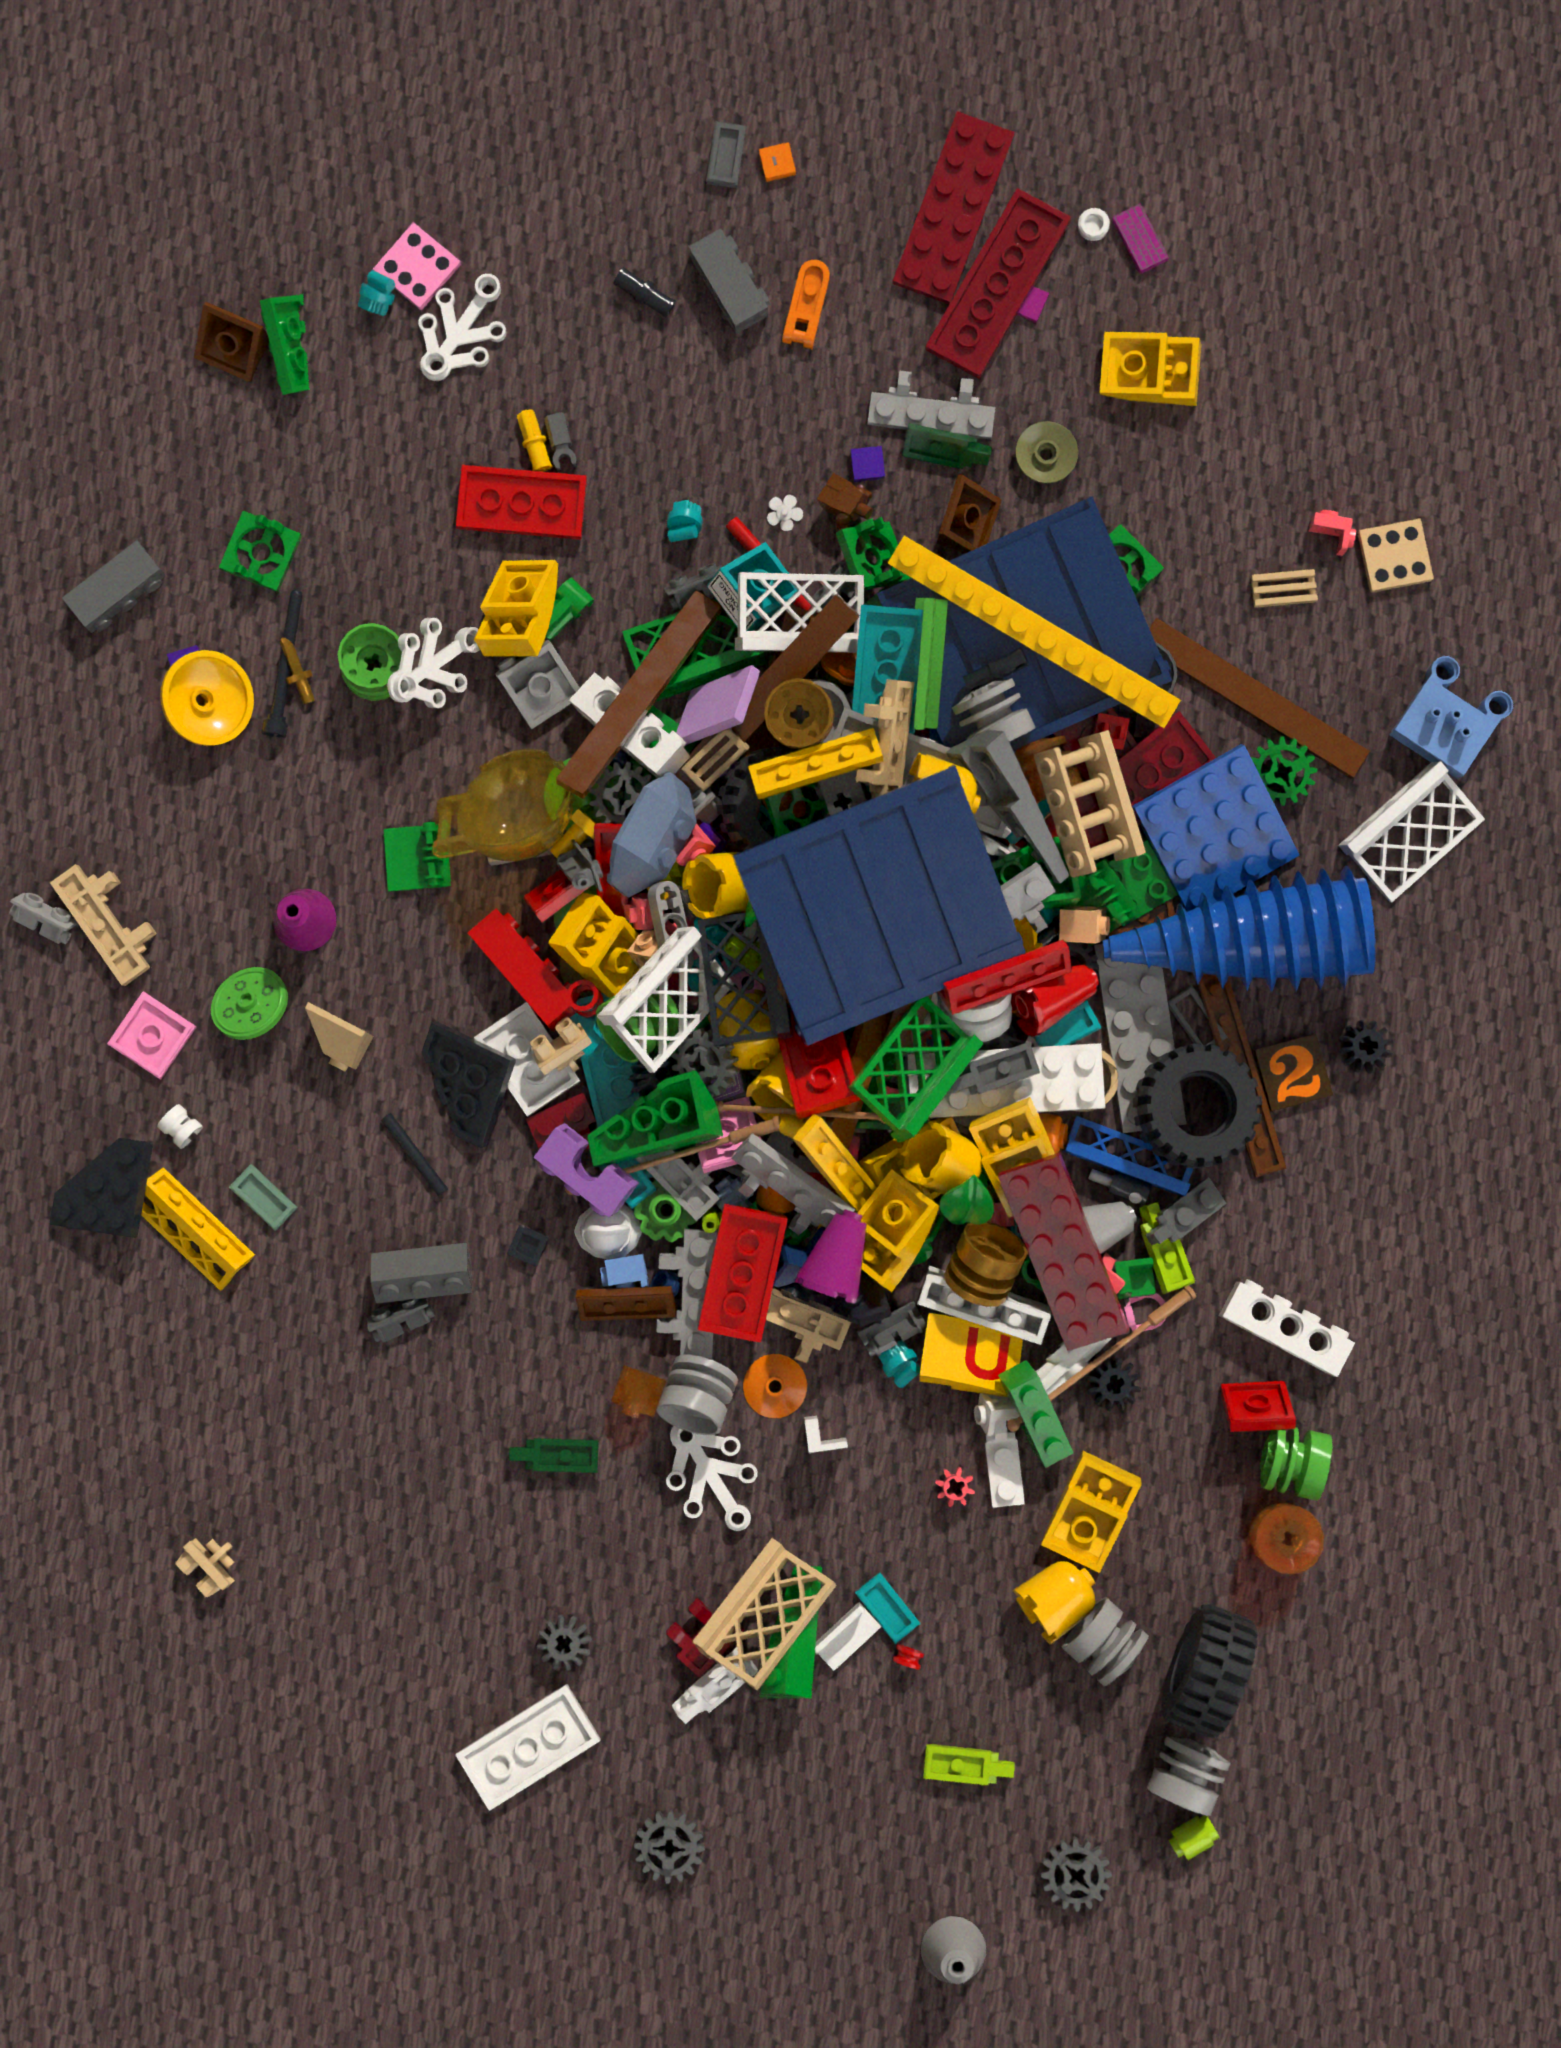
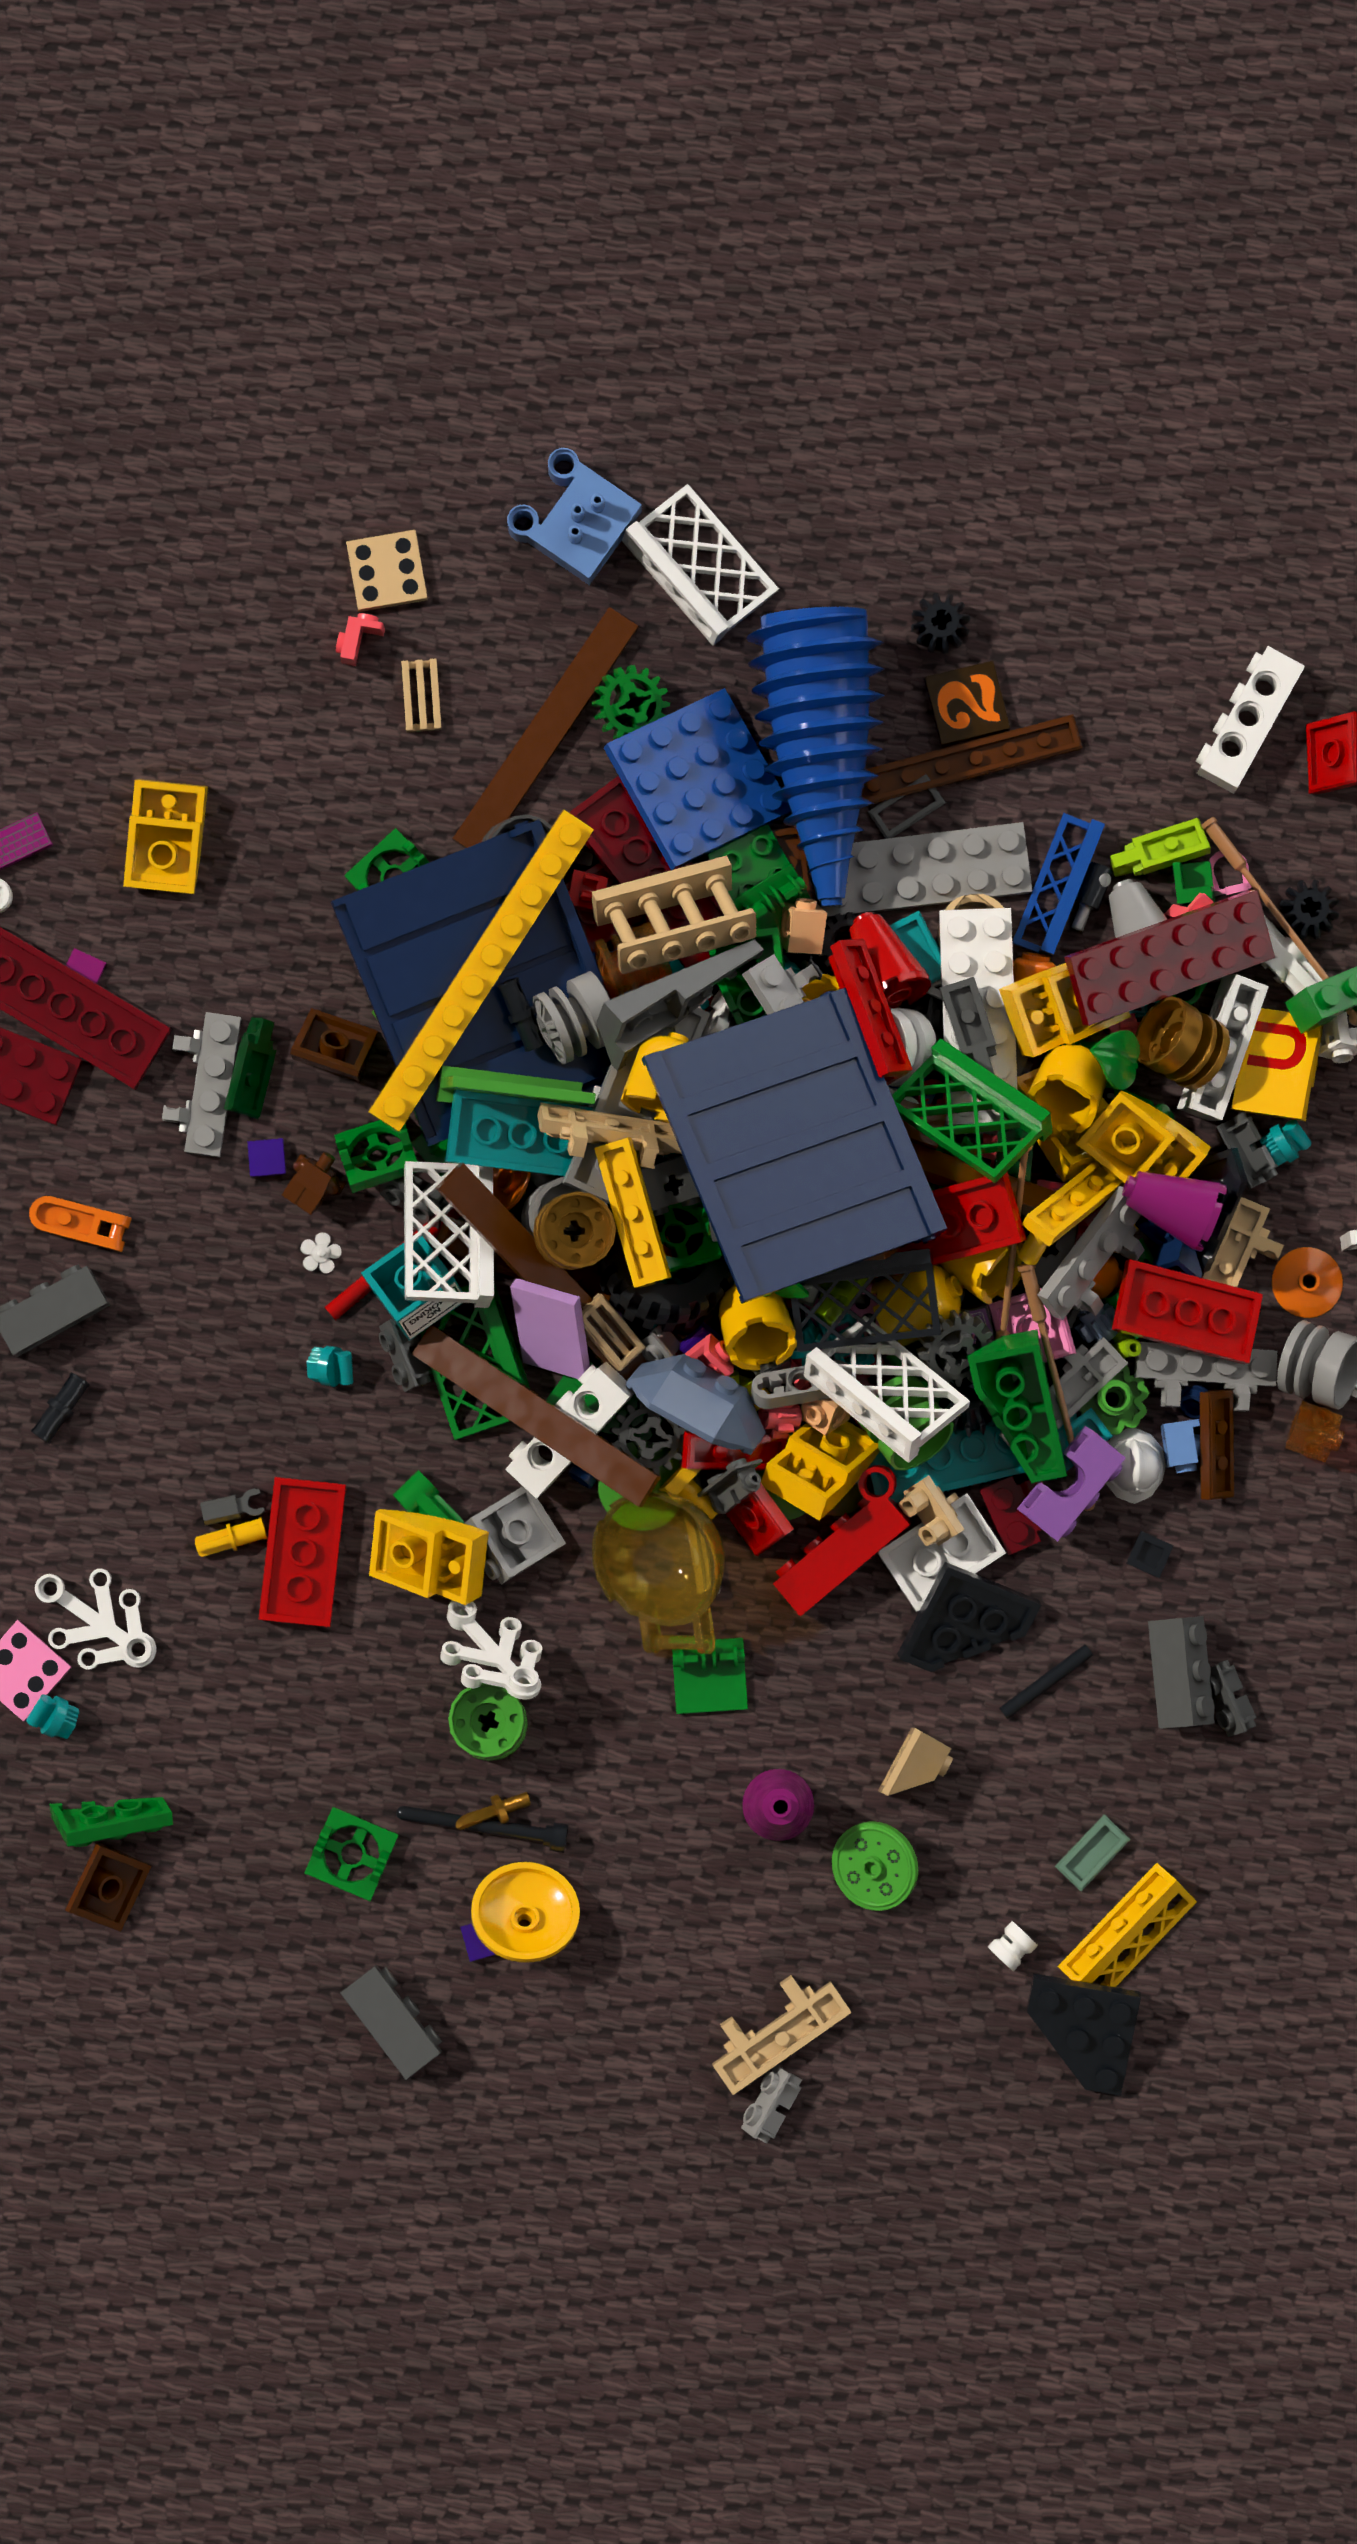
camera: 95 degrees left, 0 degrees up
(151, 1035) = (907, 1979): bright pink tile -> none
(1049, 437) = (255, 937): olive dish -> none
(1186, 1212) = (1122, 824): dark grey hinge -> none
(1236, 1092) = (1008, 763): black tyre -> none

